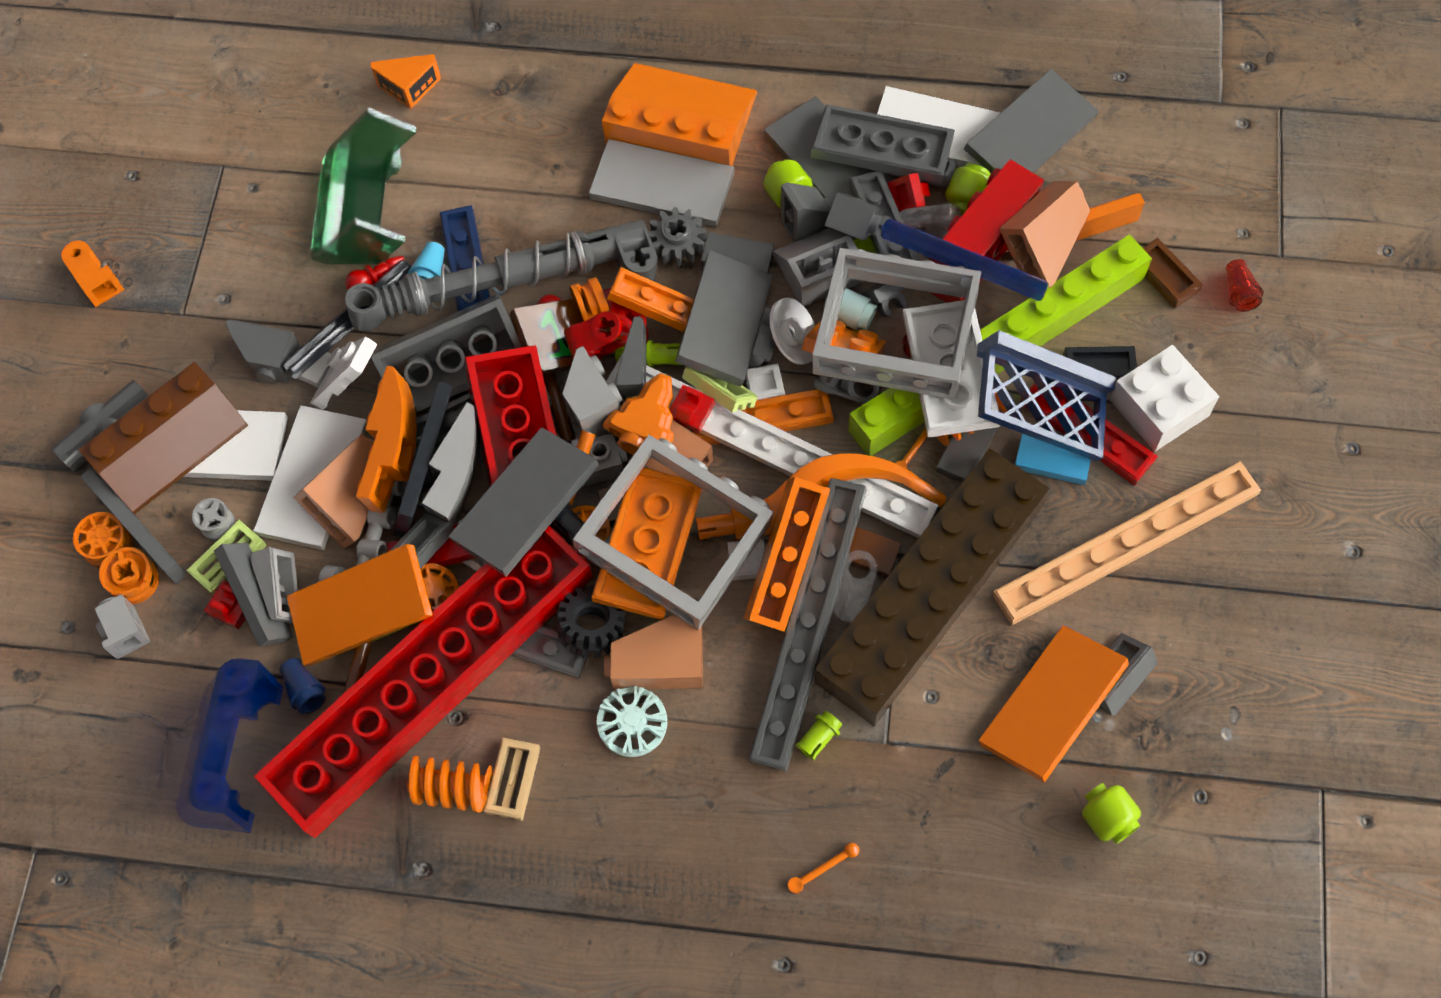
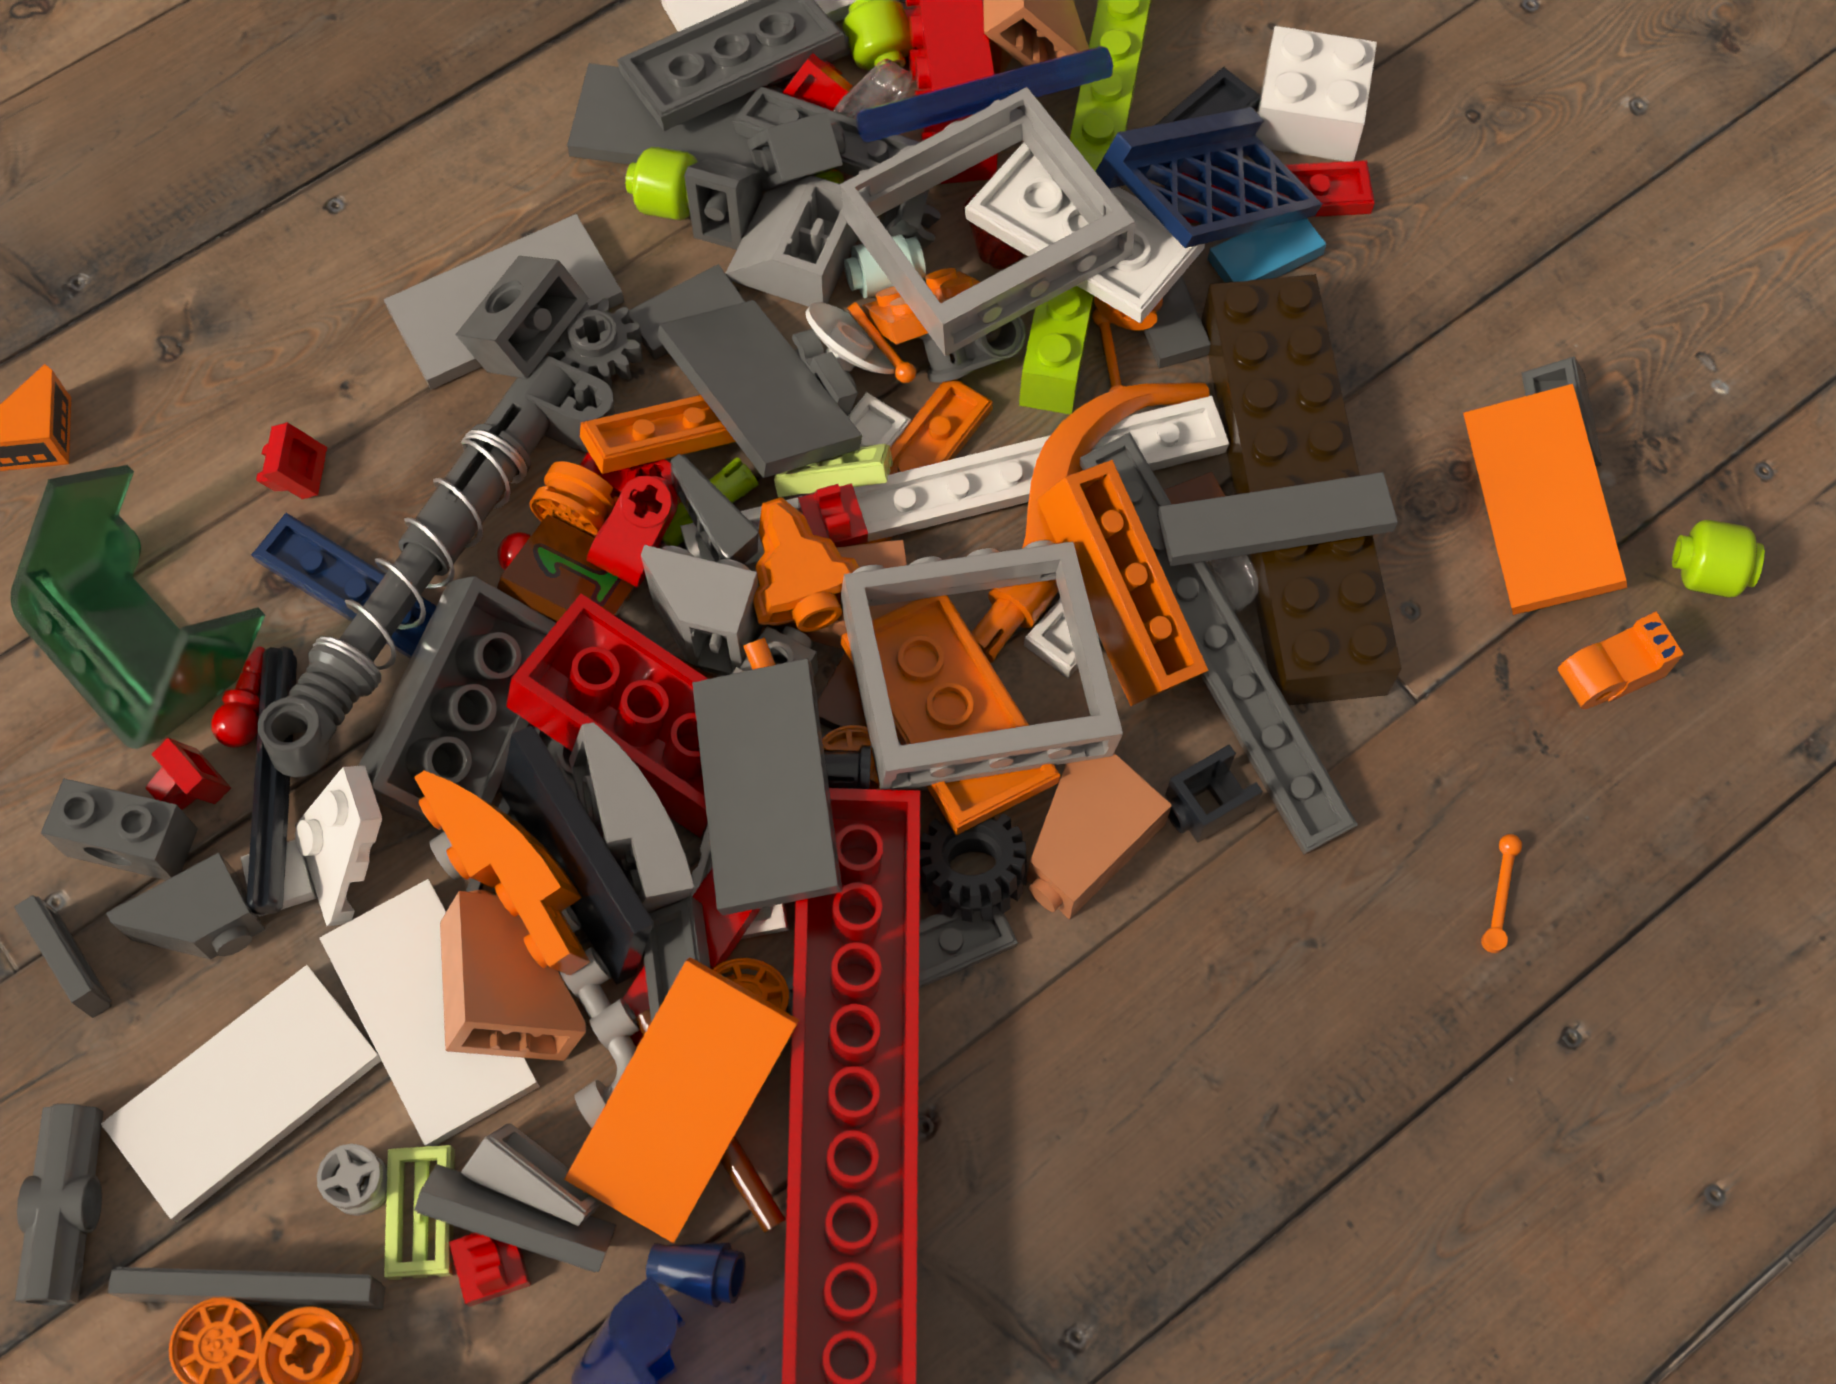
camera: 50 degrees left, 0 degrees up
(163, 437) = (177, 1138): slope -> none
(200, 323) = (63, 956): none -> dark grey tile
(270, 288) = (119, 830): none -> dark grey brick
(318, 287) = (185, 776): none -> red tile
(429, 261) = (304, 623): medium azure cone -> none
(447, 785) = (1009, 1205): orange piece -> none
(495, 183) = (292, 462): none -> red tile
(505, 810) = (1098, 1173): tan tile -> none
(632, 721) = (1132, 933): light aqua wheel -> none
(650, 196) = (522, 316): none -> dark grey brick
(678, 113) = (443, 204): orange slope -> none
(734, 679) = (1212, 775): none -> black window
(801, 366) = (905, 371): none -> orange hinge
(819, 735) = (1349, 754): lime pin -> none
(889, 588) = (1276, 519): none -> dark grey tile
(1000, 816) = (1621, 662): none -> orange leg
(1125, 543) = (1427, 282): light nougat tile -> none

